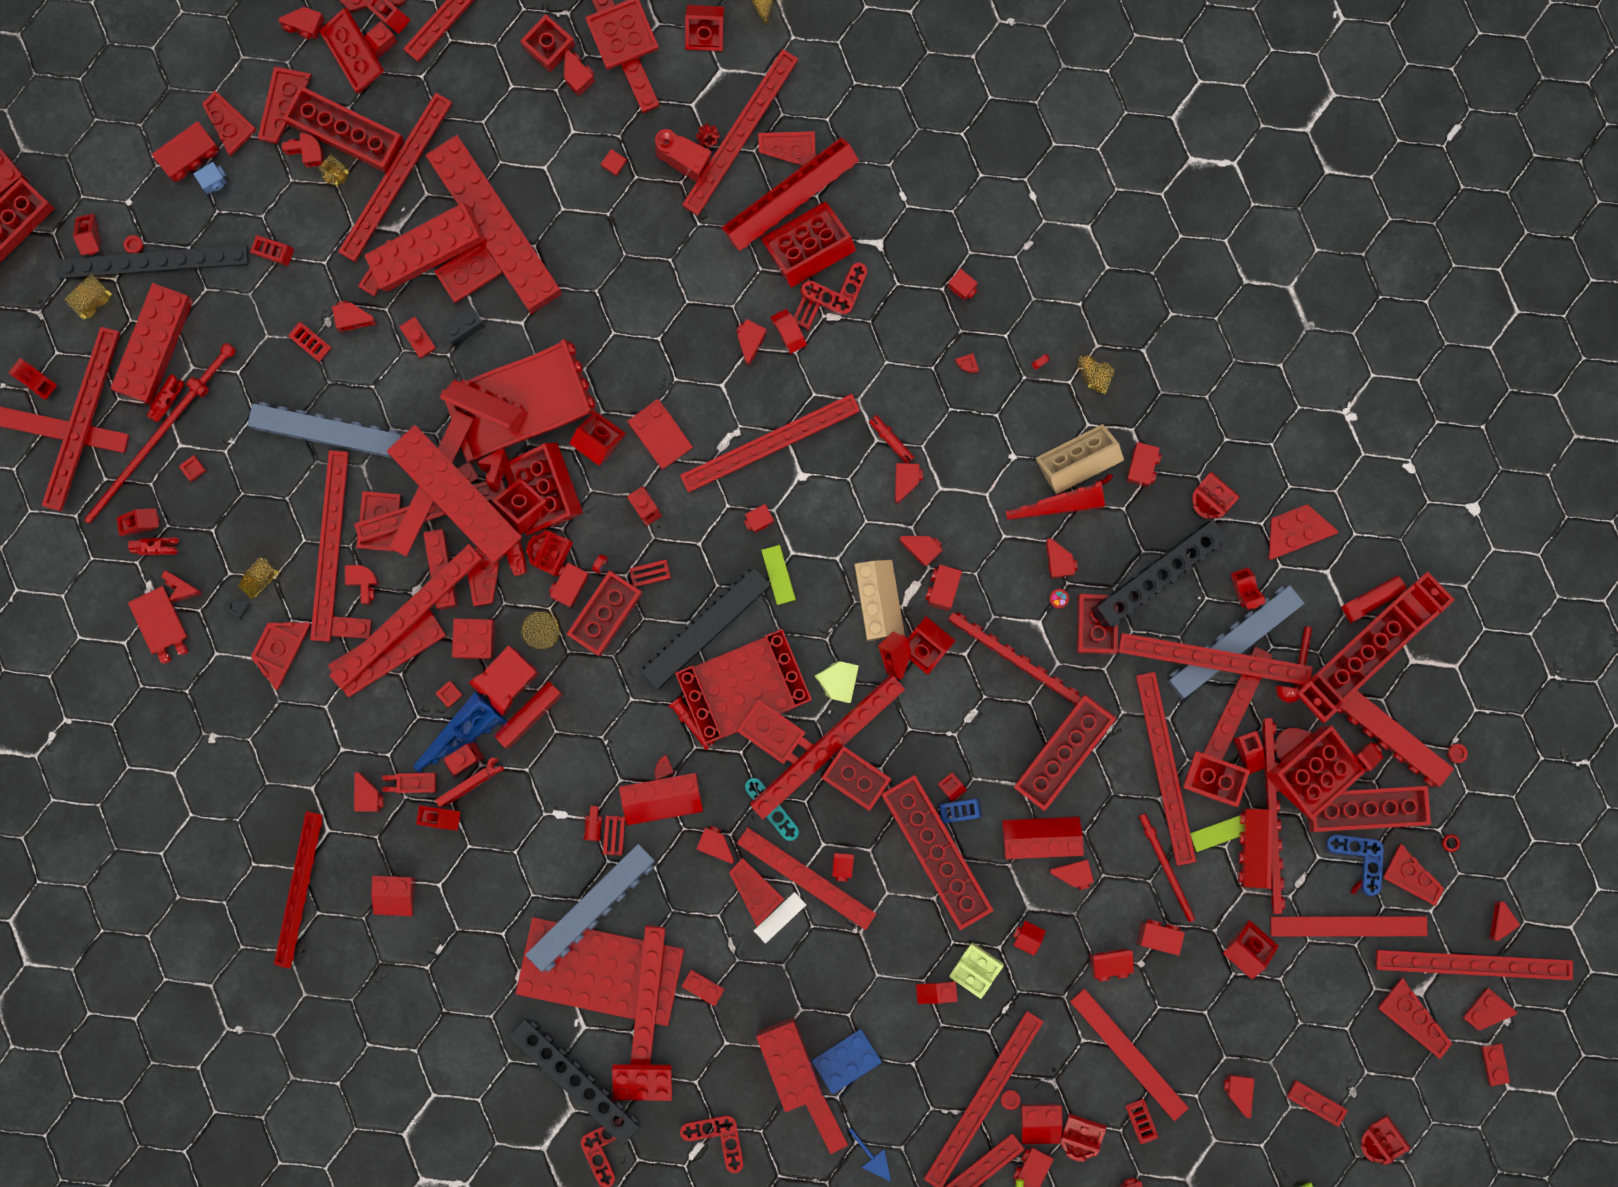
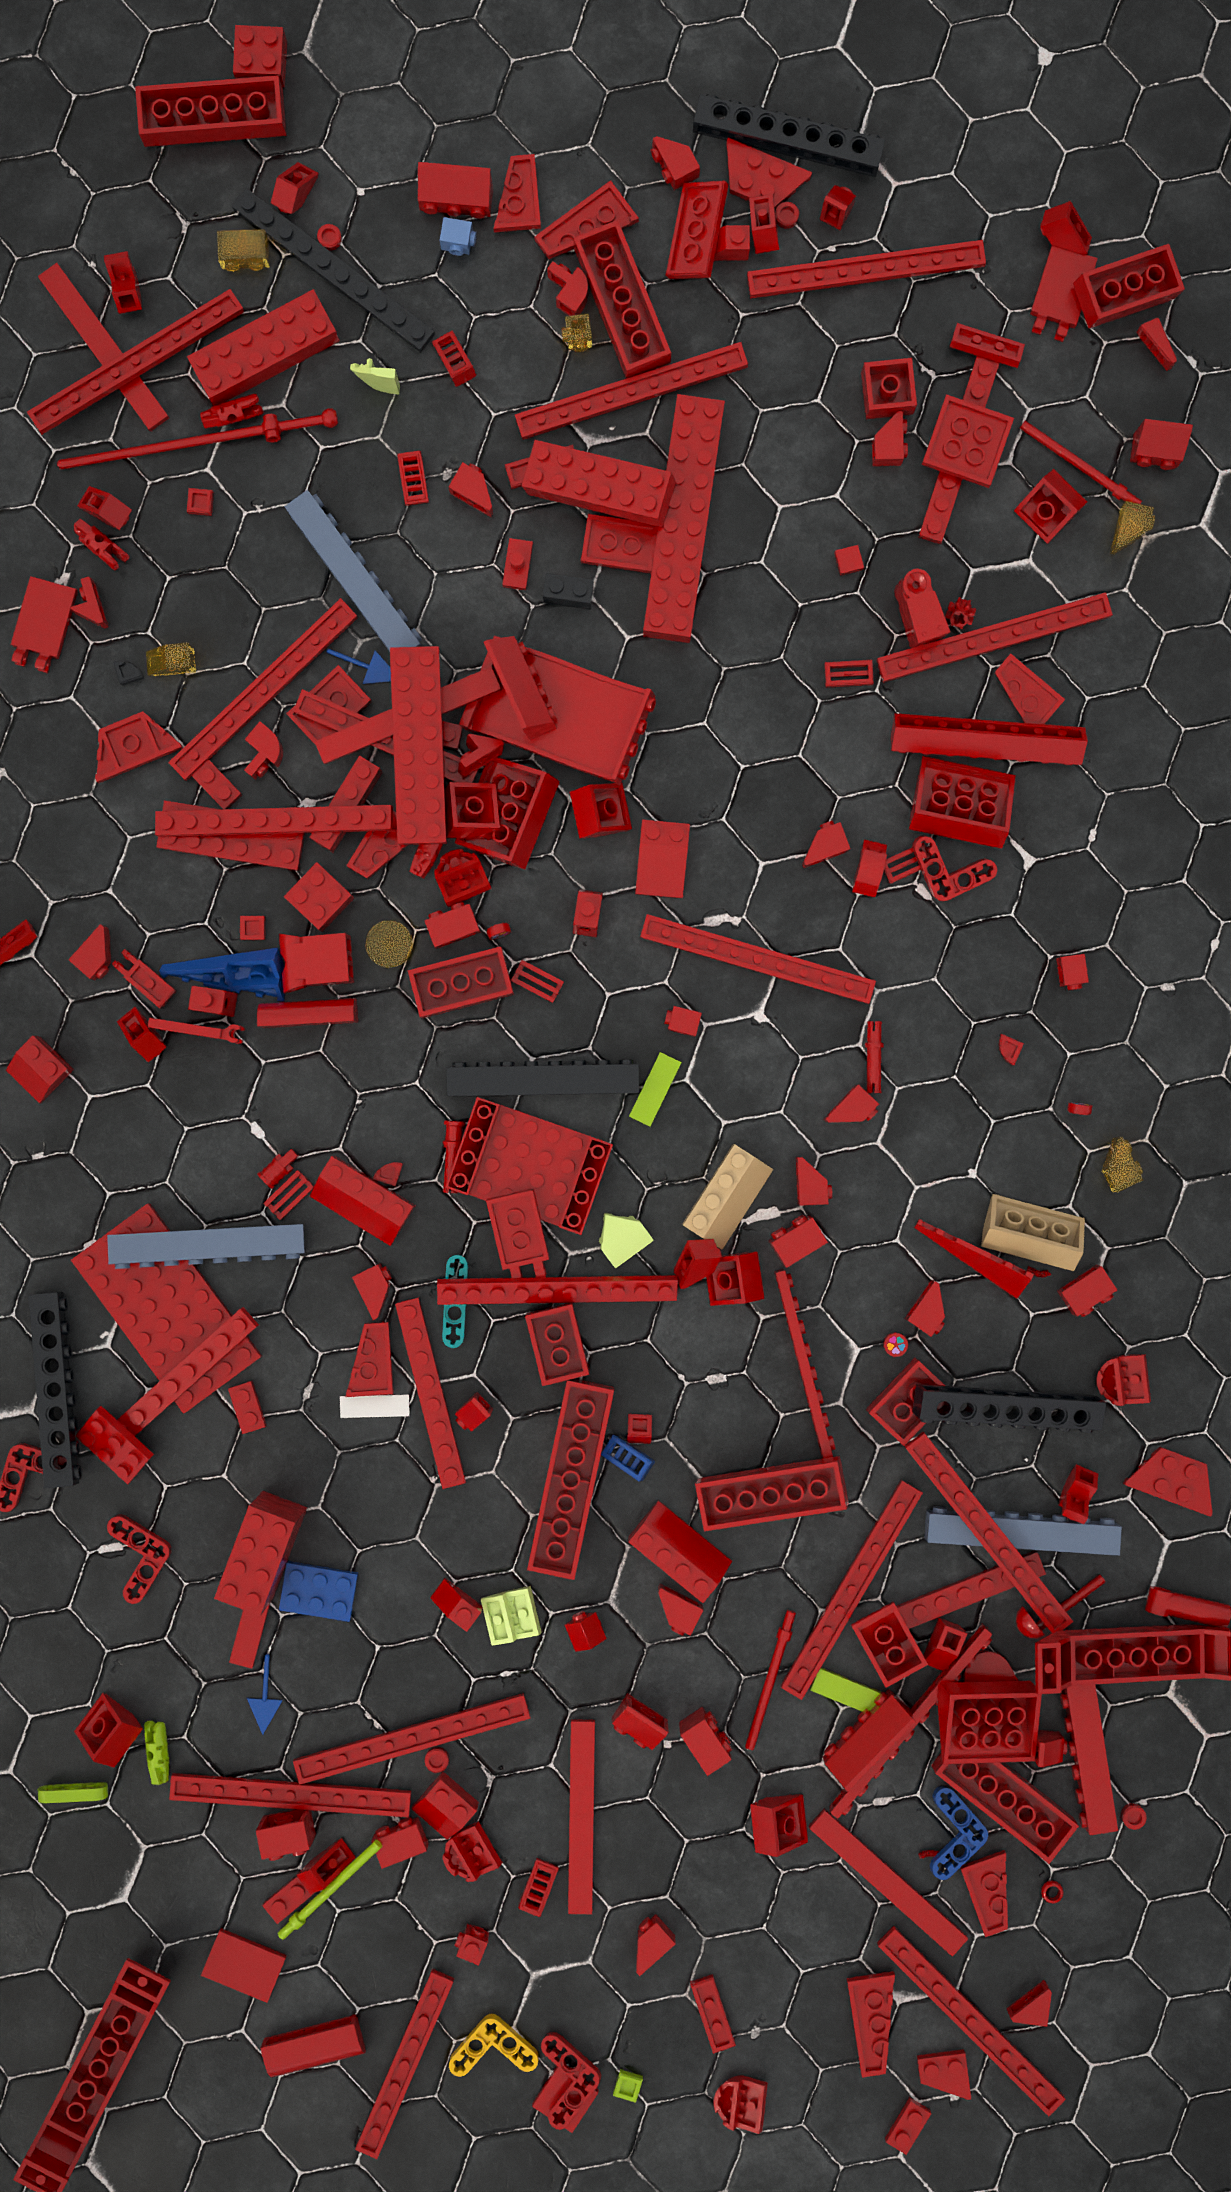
camera: 35 degrees right, 5 degrees up
(238, 301) = (378, 378): none -> yellowish green slope
(388, 473) = (377, 671): none -> blue piece
(662, 239) = (845, 664): none -> red tile

